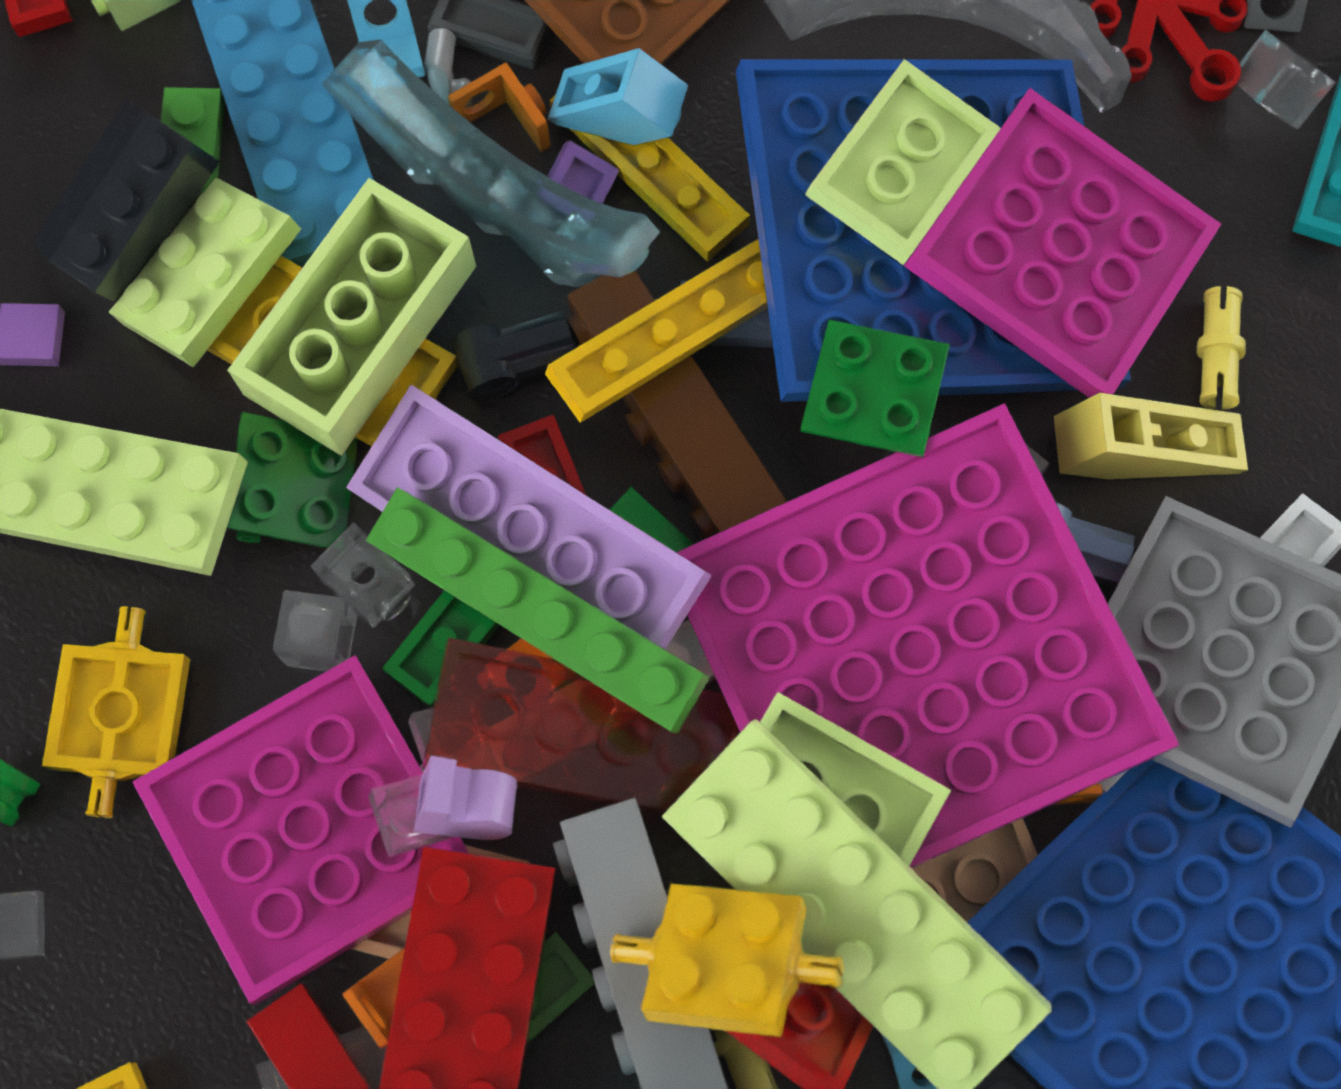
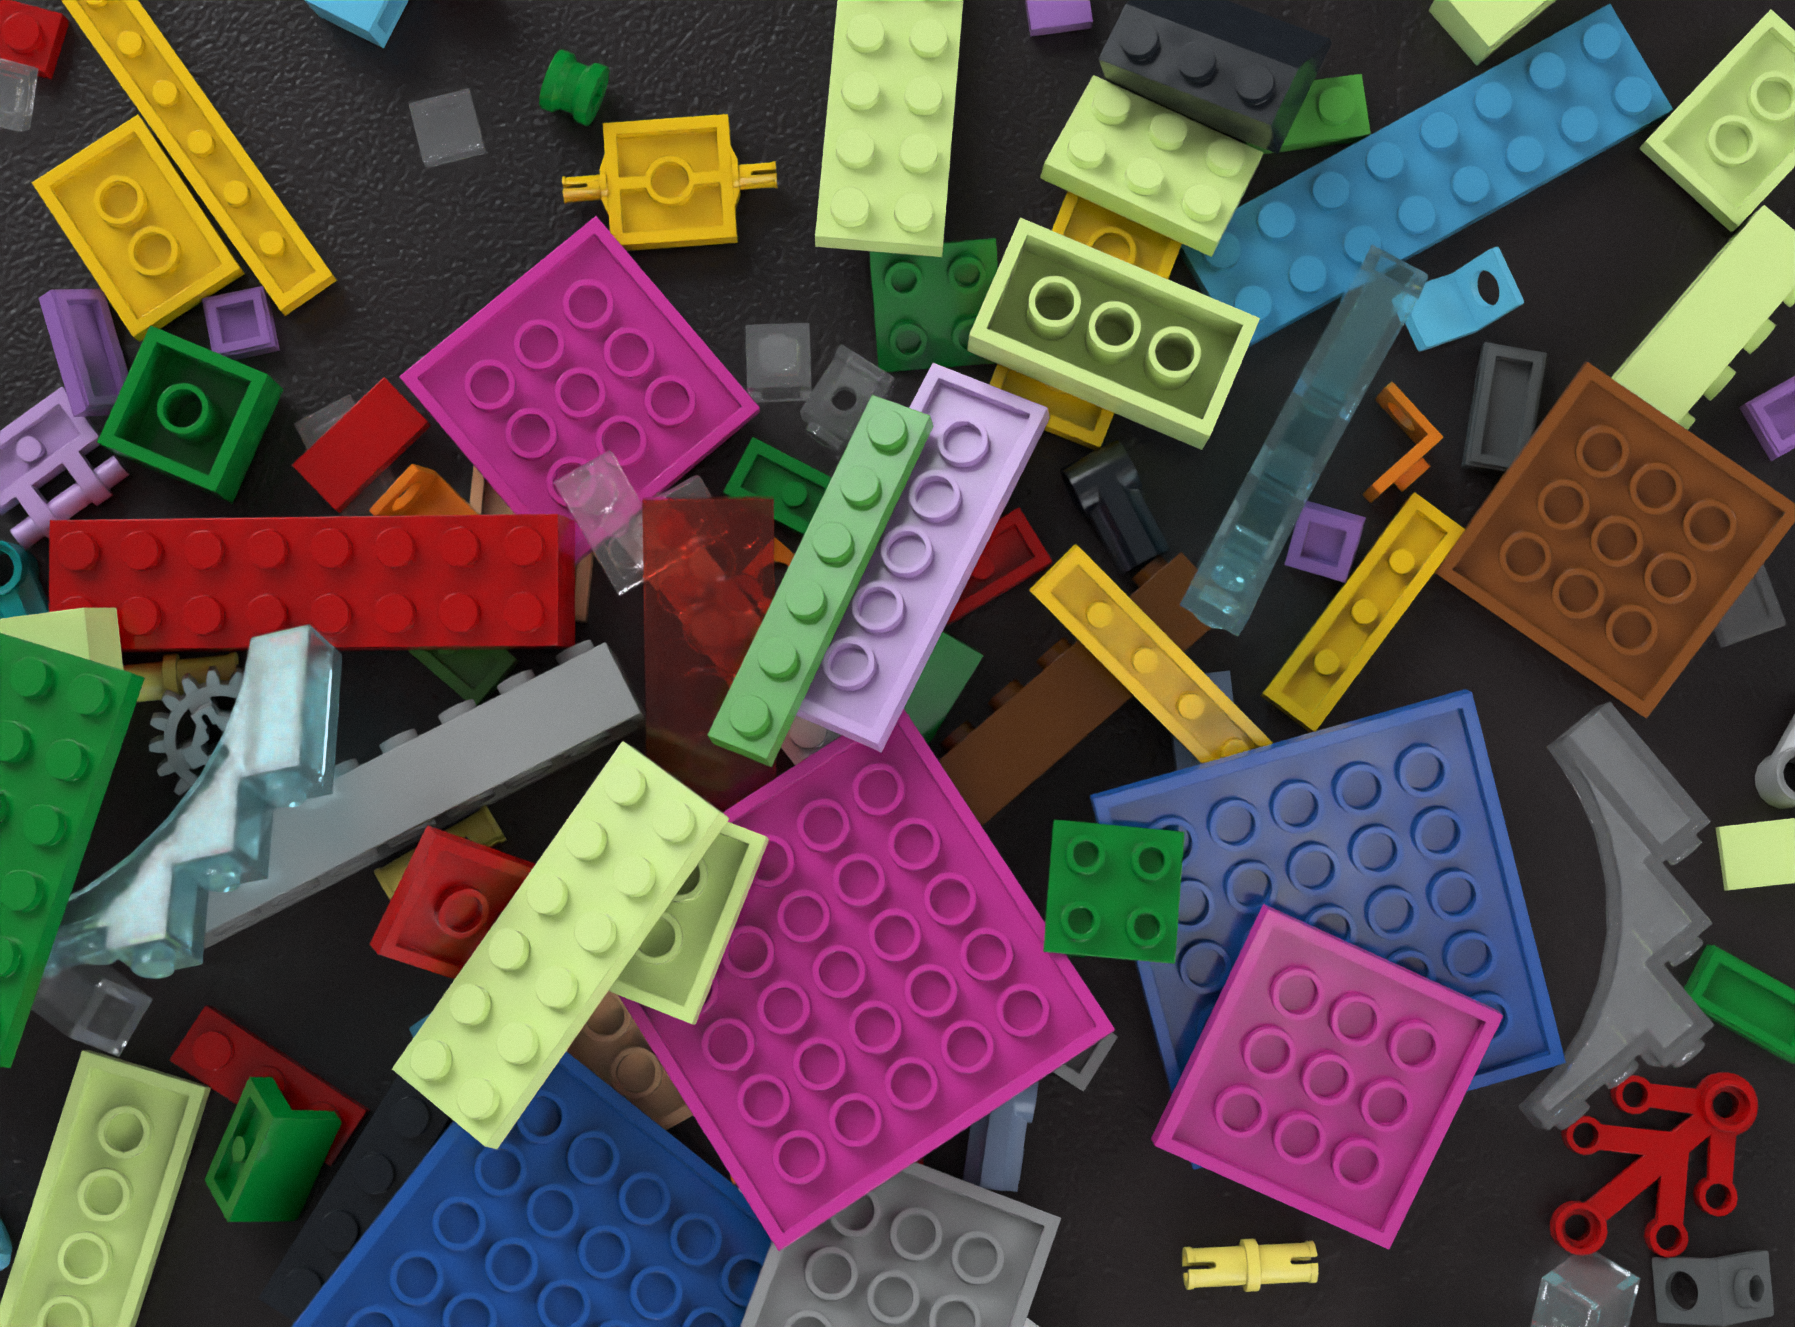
camera: 75 degrees right, 10 degrees up
(439, 64) = (1435, 365): light grey arm -> none
(464, 801) = (613, 546): lavender leg -> none
(620, 98) = (1417, 568): medium azure slope -> none
(726, 960) = (485, 824): yellow plate -> none
(902, 161) = (1383, 887): yellowish green plate -> none
(1147, 439) = (1128, 1198): light yellow slope -> none

